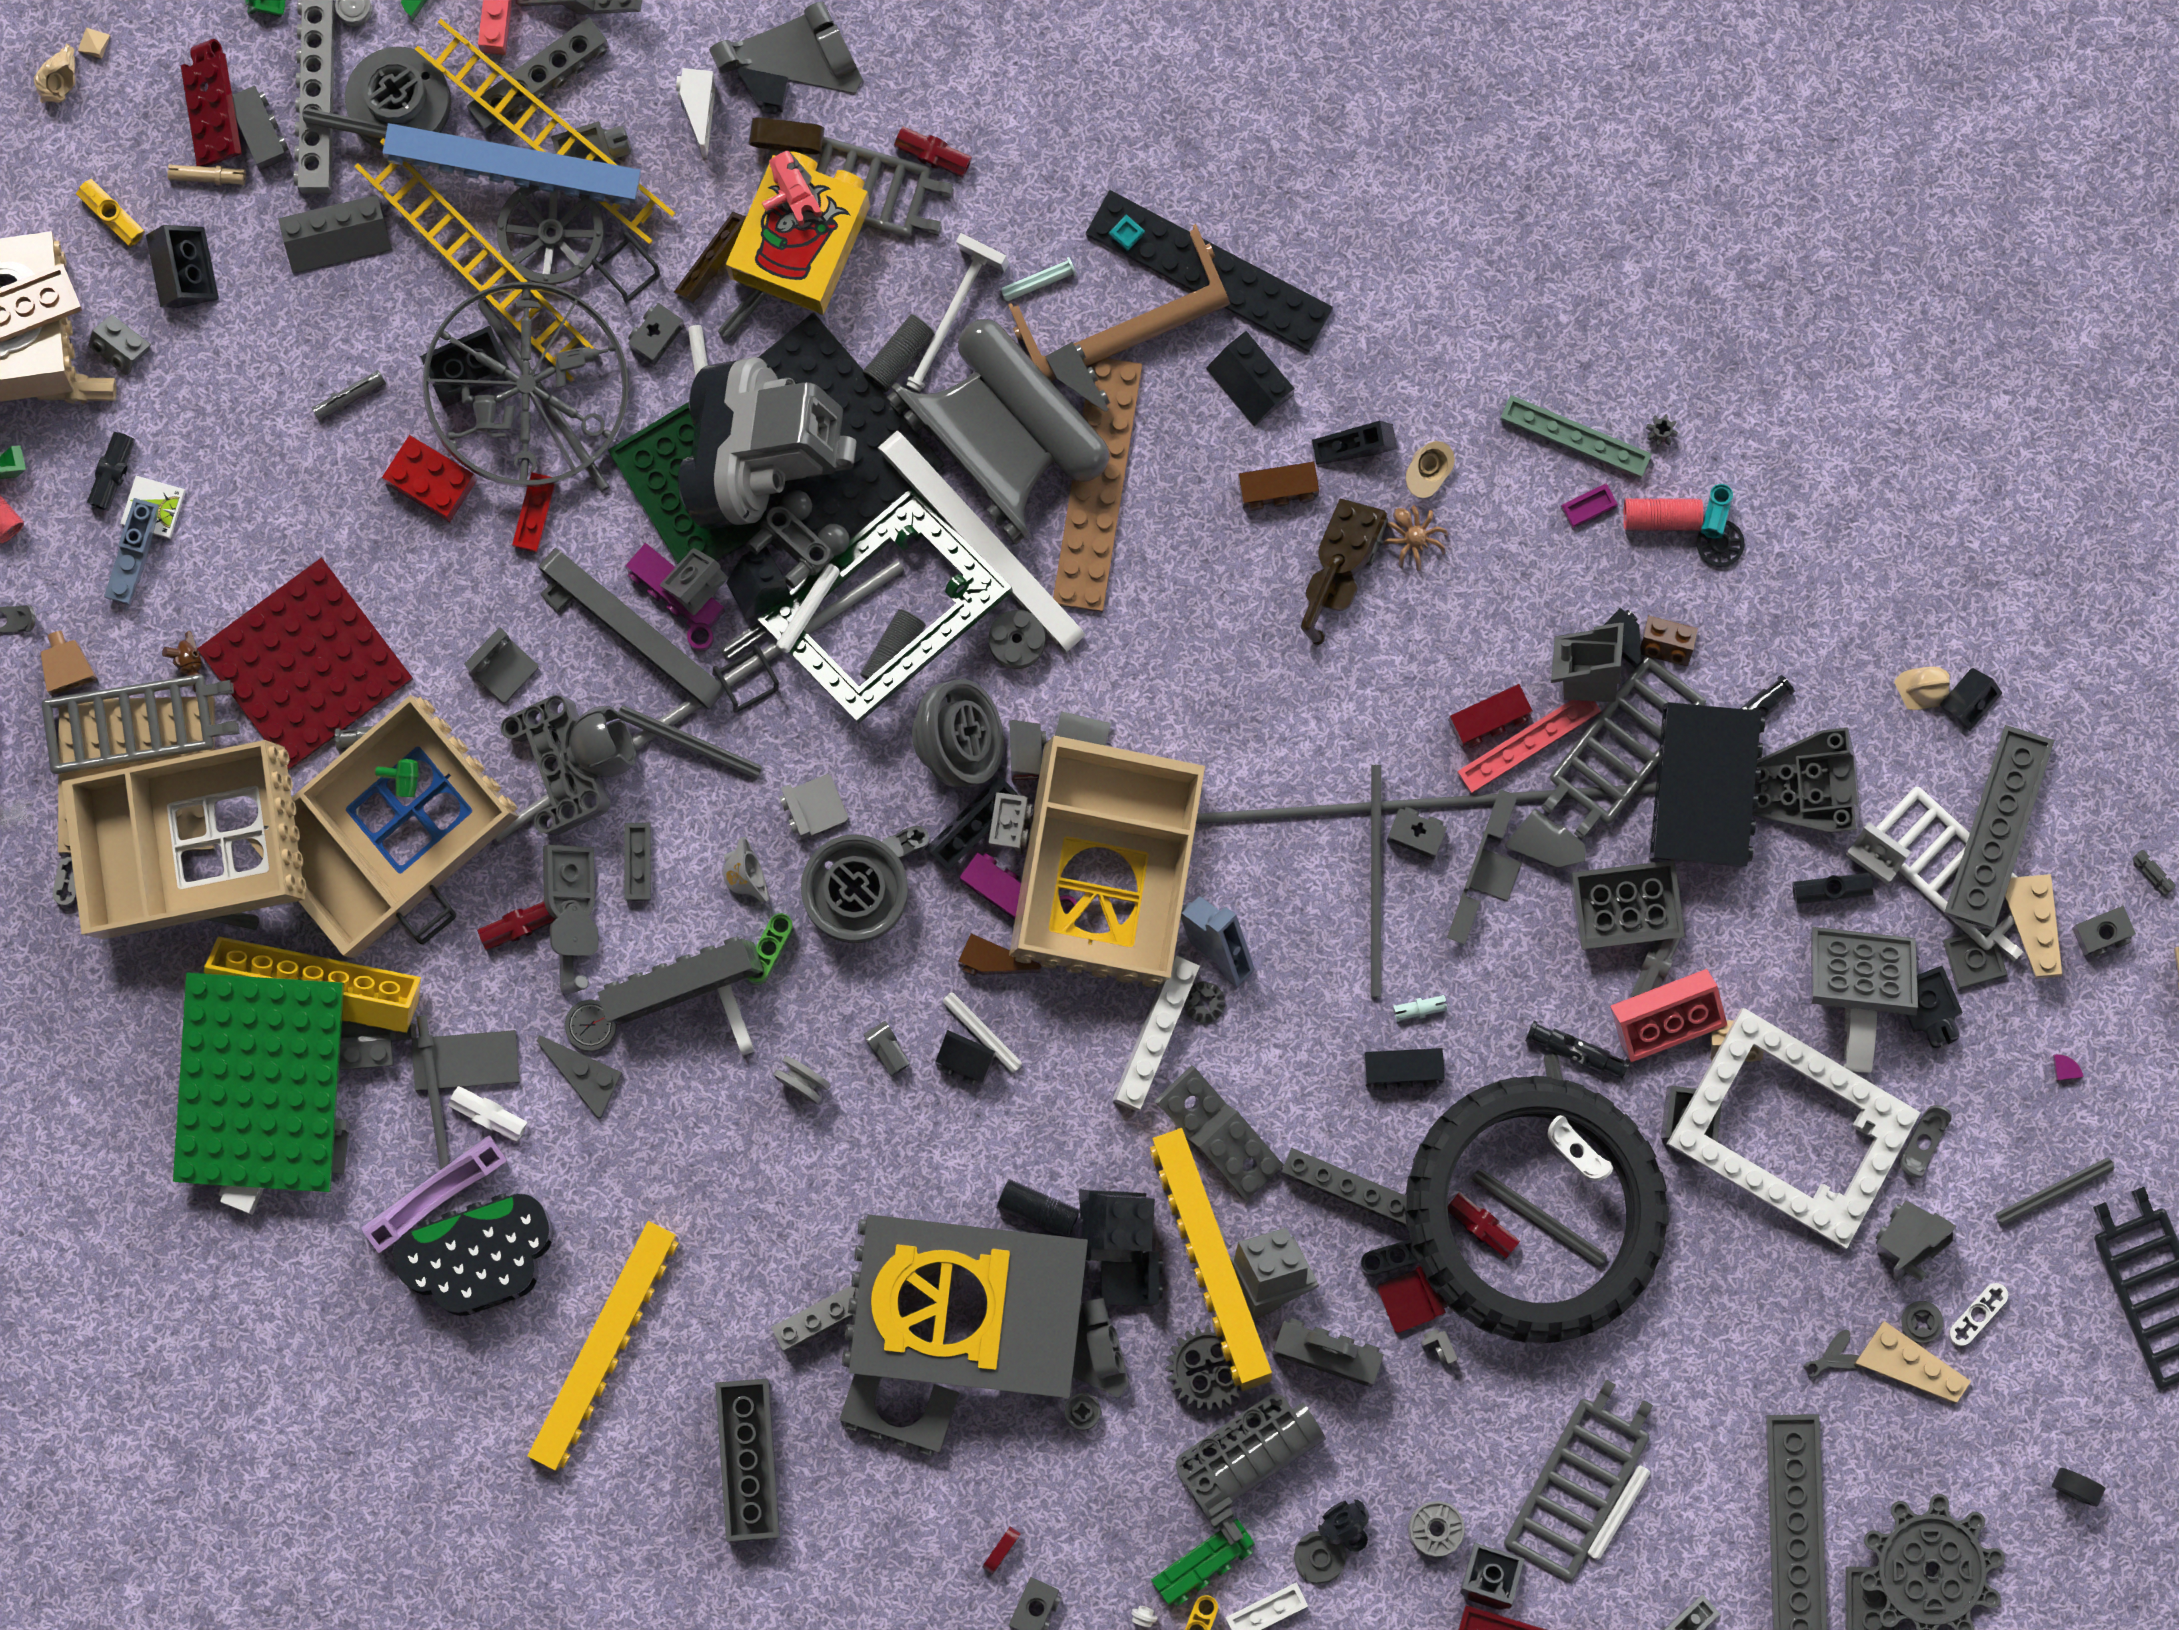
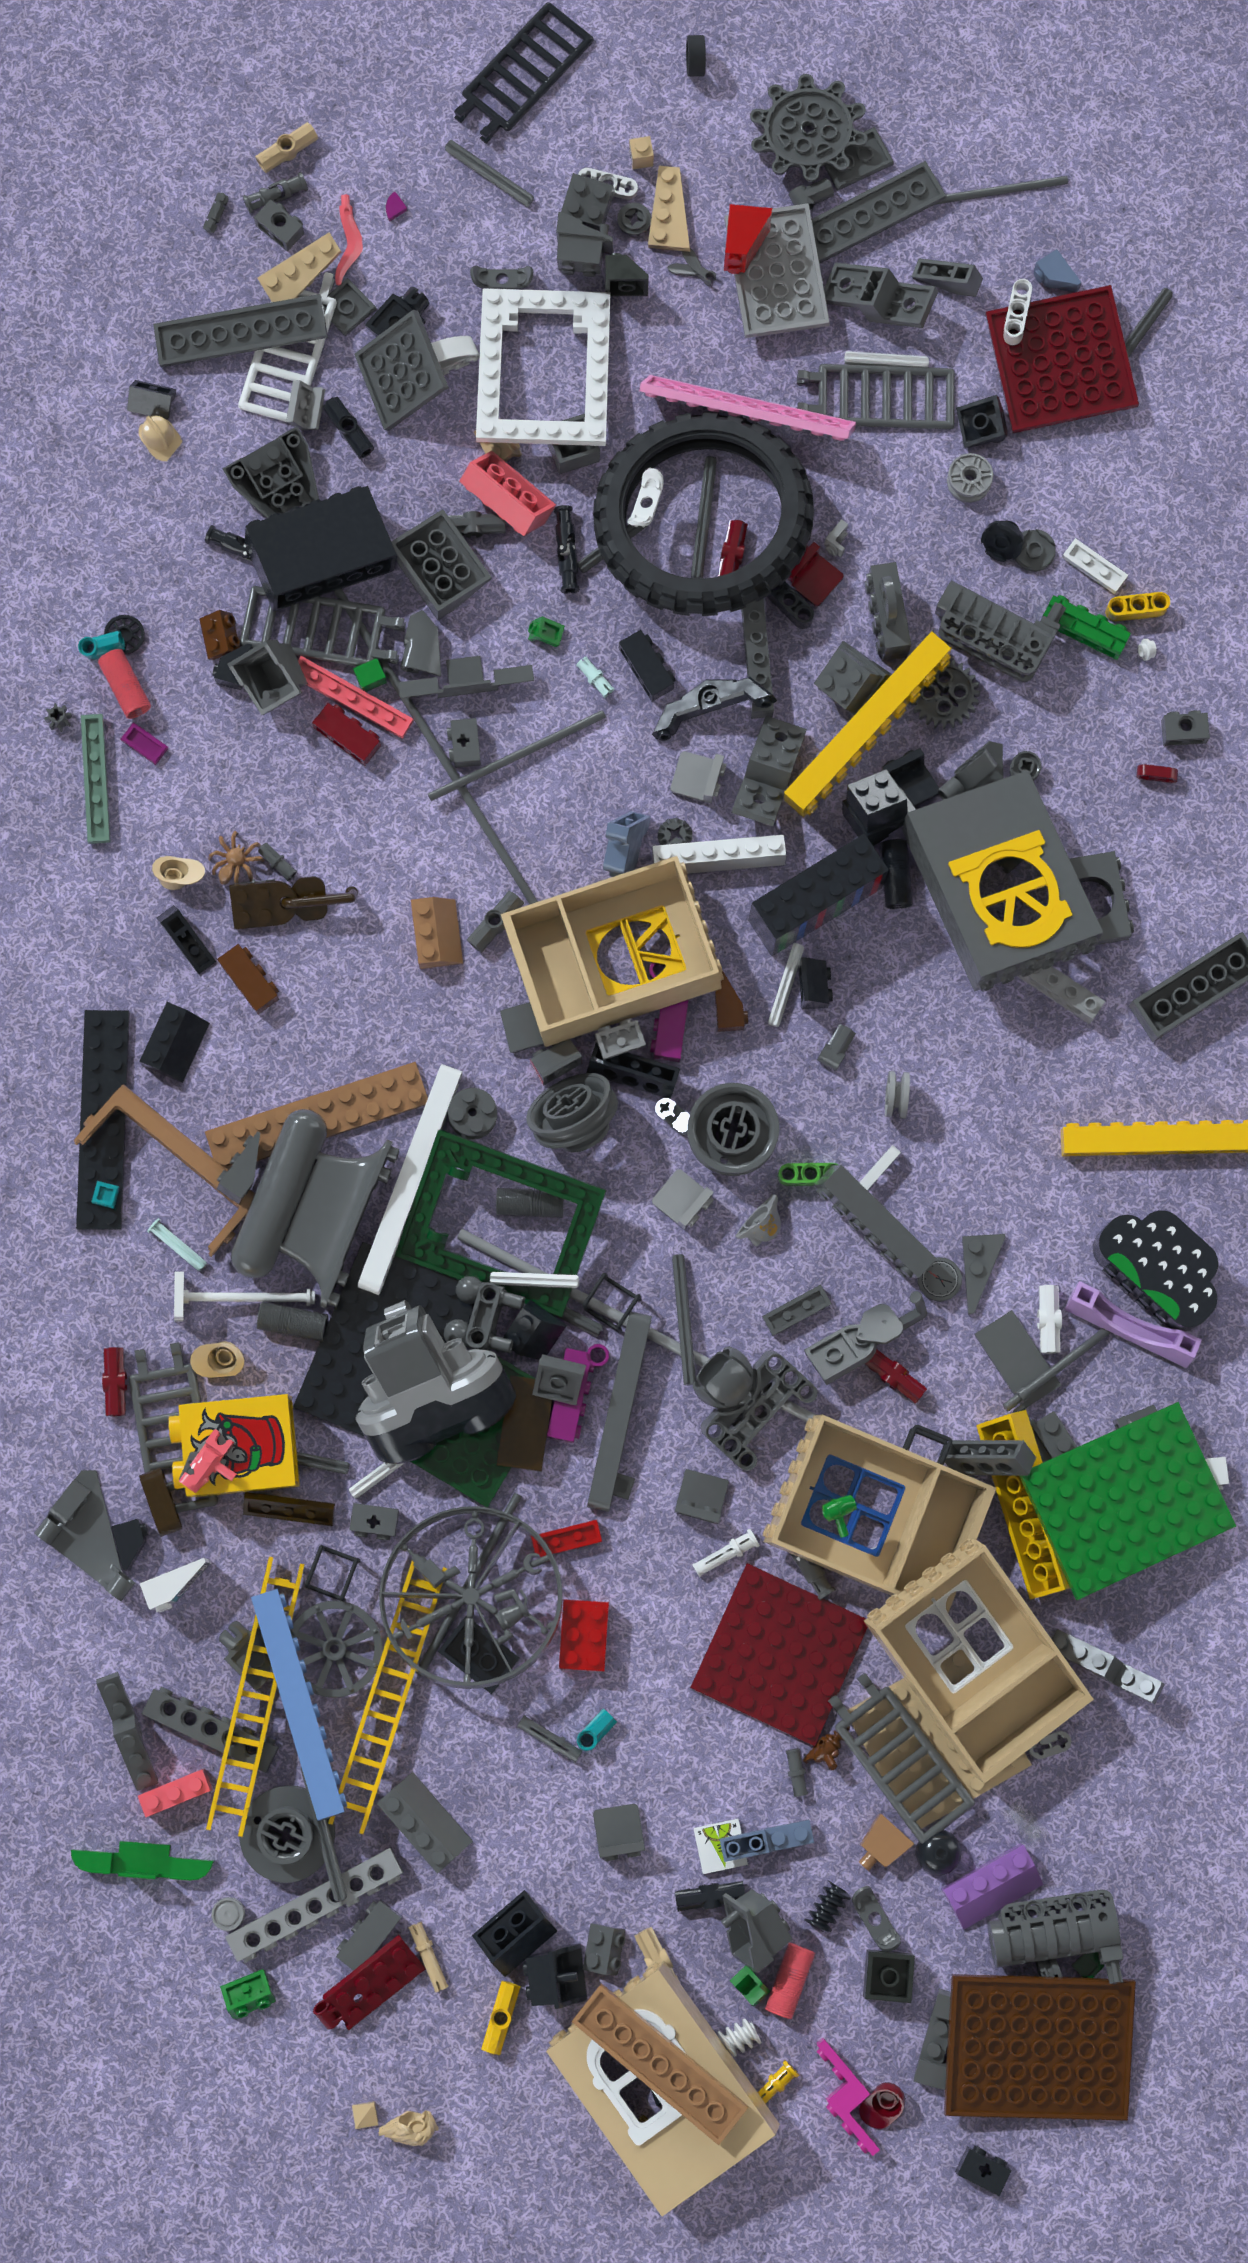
camera: 120 degrees left, 0 degrees up
(24, 715) = (939, 1853): none -> black cylinder
(33, 579) = (828, 1907): none -> black piece
(53, 492) = (754, 1929): none -> dark grey piece
(110, 975) = (1108, 1667): none -> bracket
(116, 281) = (556, 1977): none -> black piece
(181, 617) = (796, 1772): none -> dark grey pin
(220, 415) = (618, 1831): none -> dark grey bracket
(331, 444) = (597, 1728): none -> teal piece
(377, 965) = (990, 1457): none -> dark grey brick
(431, 674) = (735, 1548): none -> white pin
(665, 524) = (525, 1428): none -> dark brown tile
(899, 260) = (217, 1360): none -> tan piece
(1053, 1104) = (818, 895): none -> black brick
(1201, 750) = (485, 931): none -> dark grey piece
(1227, 700) = (436, 932): none -> medium nougat slope
(1254, 1058) = (698, 776): none -> light grey bracket
(1331, 1111) = (709, 697): none -> helmet
(1390, 577) = (277, 861): none -> dark grey axle
(1496, 981) = (546, 631): none -> green bracket
(1542, 770) = (370, 675): none -> green panel
(1634, 1323) = (754, 408): none -> bright pink plate
(1693, 1538) = (879, 295): none -> dark grey bracket
(1779, 1441) = (784, 280): none -> light grey plate
(1828, 1415) = (745, 235): none -> red slope
(1852, 1526) = (812, 194): none -> dark grey piece
(1856, 1267) = (624, 276): none -> pearl dark grey slope
(1963, 1276) = (588, 200): none -> dark grey brick
(1994, 1367) = (641, 152): none -> tan brick
(2049, 1005) = (353, 237): none -> coral piece
(2146, 944) = (274, 193): none -> dark grey piece

